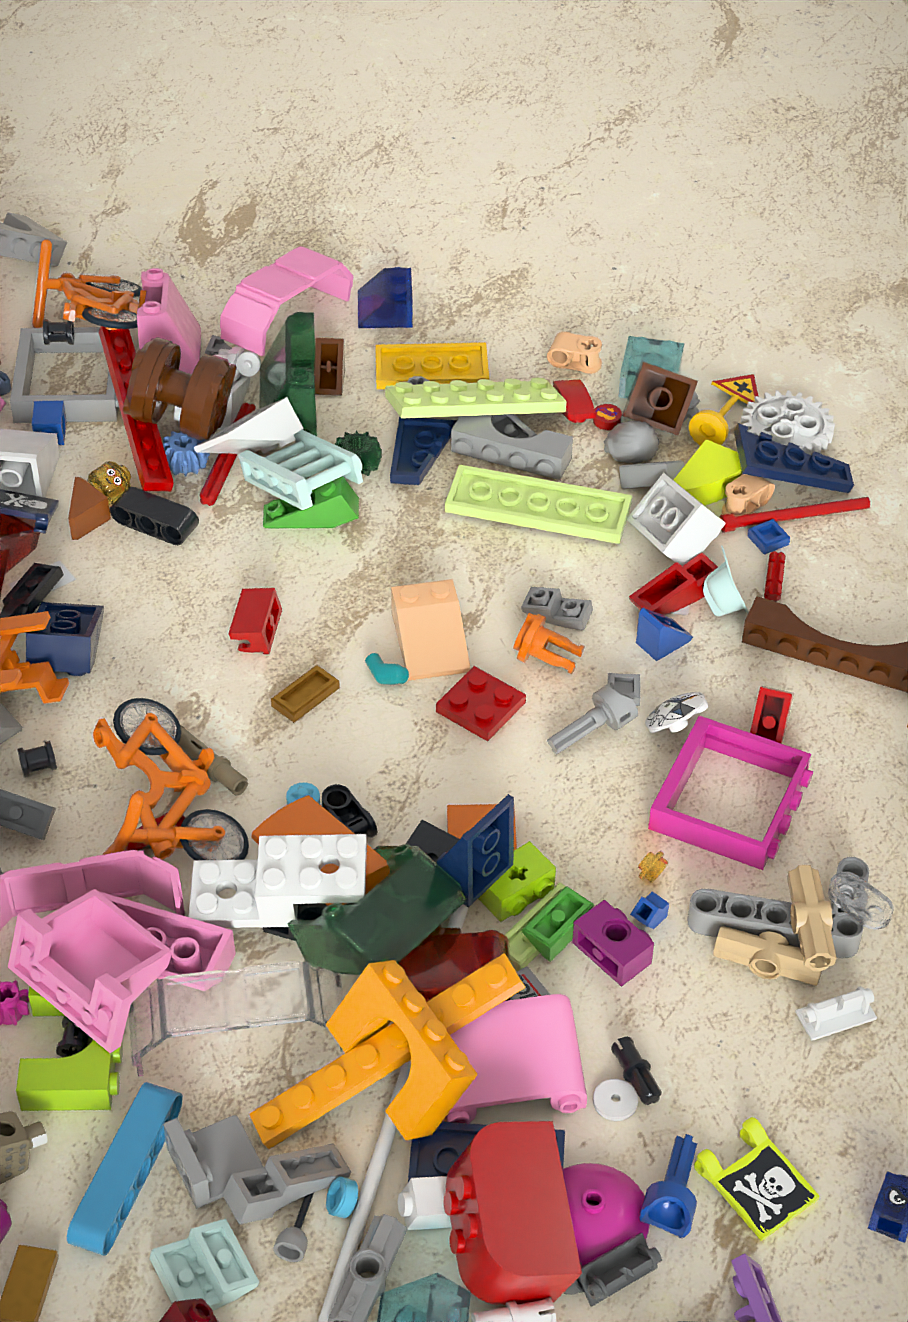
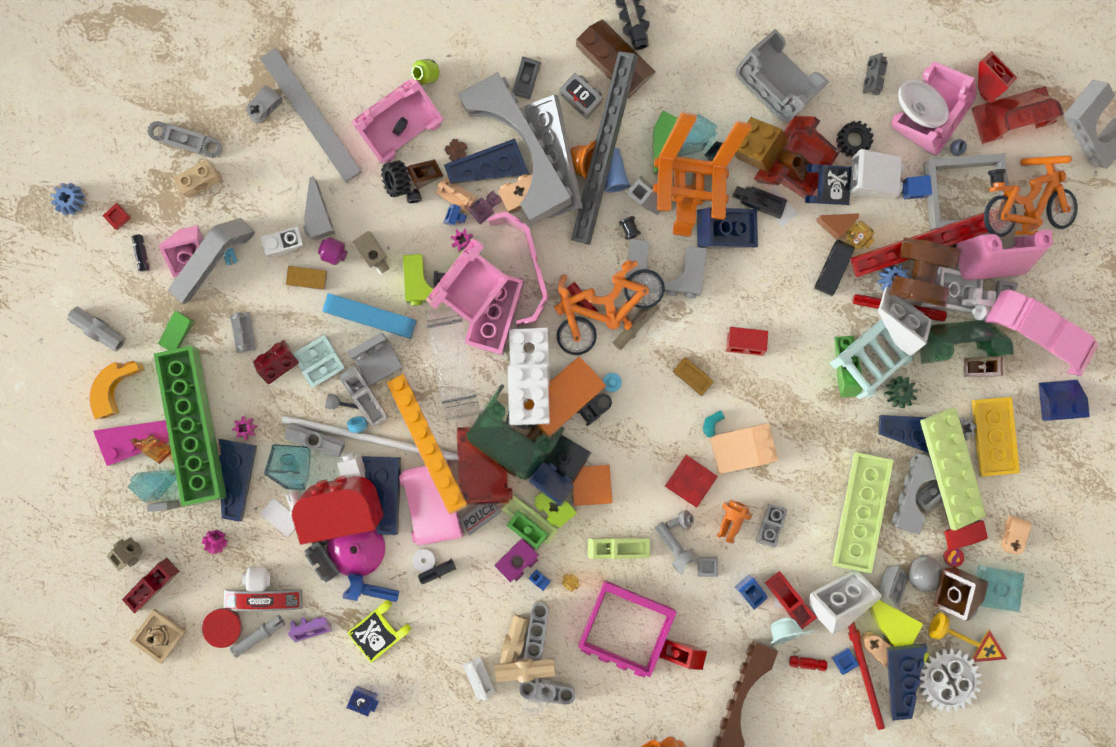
camera: 85 degrees right, 40 degrees up
(117, 680) = (693, 270): none -> light grey arch
(438, 1066) = (442, 441): light orange arch -> none
(545, 711) = (685, 519): none -> light grey plate
(592, 800) = (618, 548): none -> yellowish green slope
(675, 712) = (683, 598): white dish -> none

